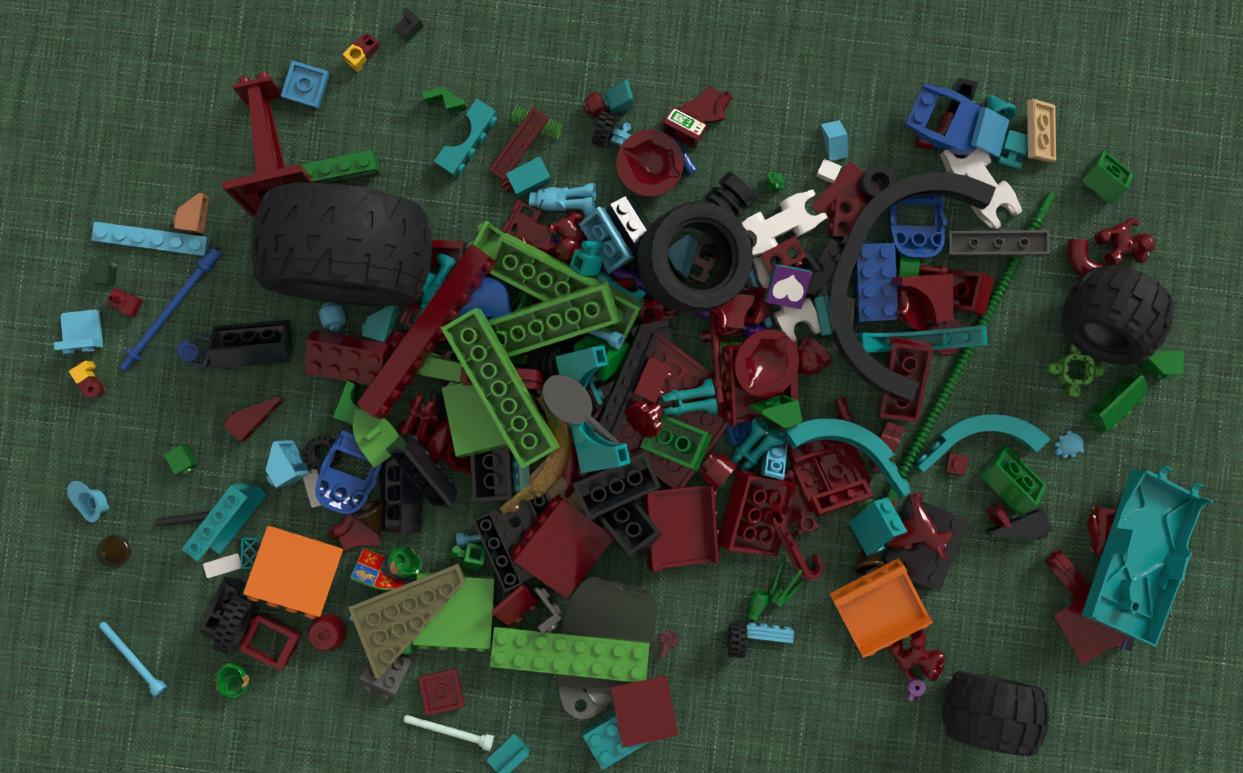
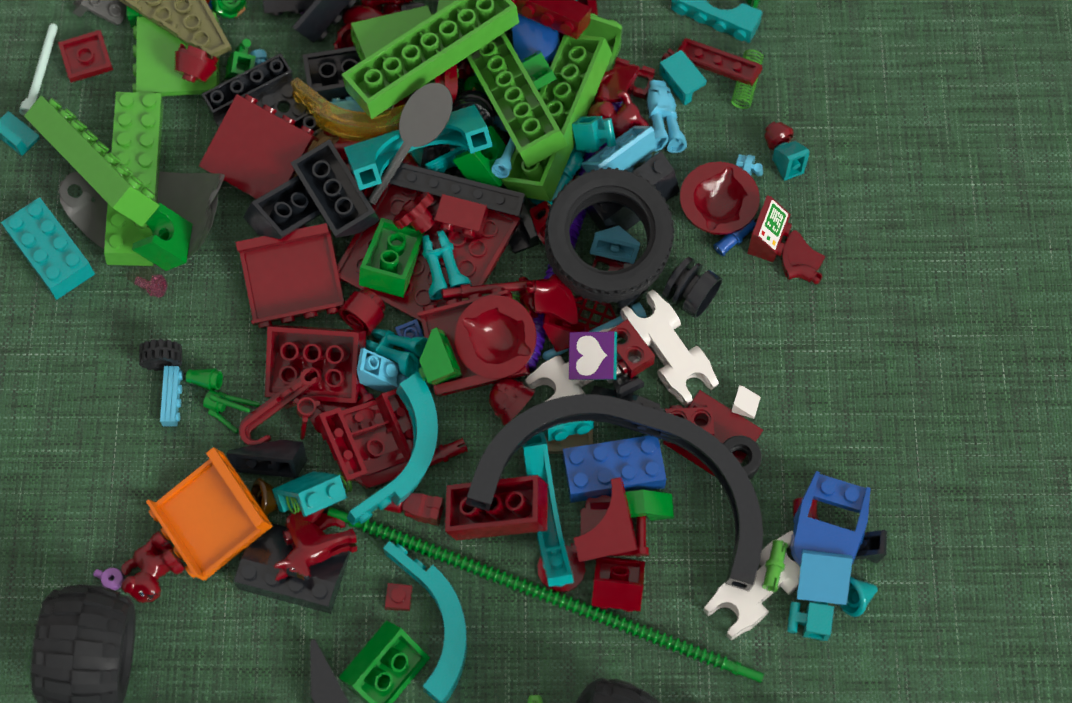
camera: 80 degrees right, 20 degrees down
(474, 596) = (194, 64): none -> dark red cone
(515, 604) = (189, 115): dark red slope -> none
(522, 298) = (538, 69): none -> green slope
(550, 621) = (184, 153): dark grey bracket -> none
(564, 691) = (92, 160): none -> bright green brick
(603, 129) = (750, 143): black tyre -> none
(638, 626) = (170, 239): none -> green piece
(644, 711) = (71, 255): dark red sticker -> none
(775, 181) = (722, 341): green plant -> none
(835, 140) = (784, 405): medium azure slope -> none
(835, 551) = (271, 458): none -> black slope
(910, 311) = (582, 512): dark red arm -> none
(919, 240) = (674, 510): blue slope -> none
(975, 169) = (775, 565): none -> bright green pin
(998, 515) = (337, 651): dark red slope -> none
(999, 243) = (685, 611): dark grey piece -> none
(1041, 131) = (840, 649): tan tile -> none

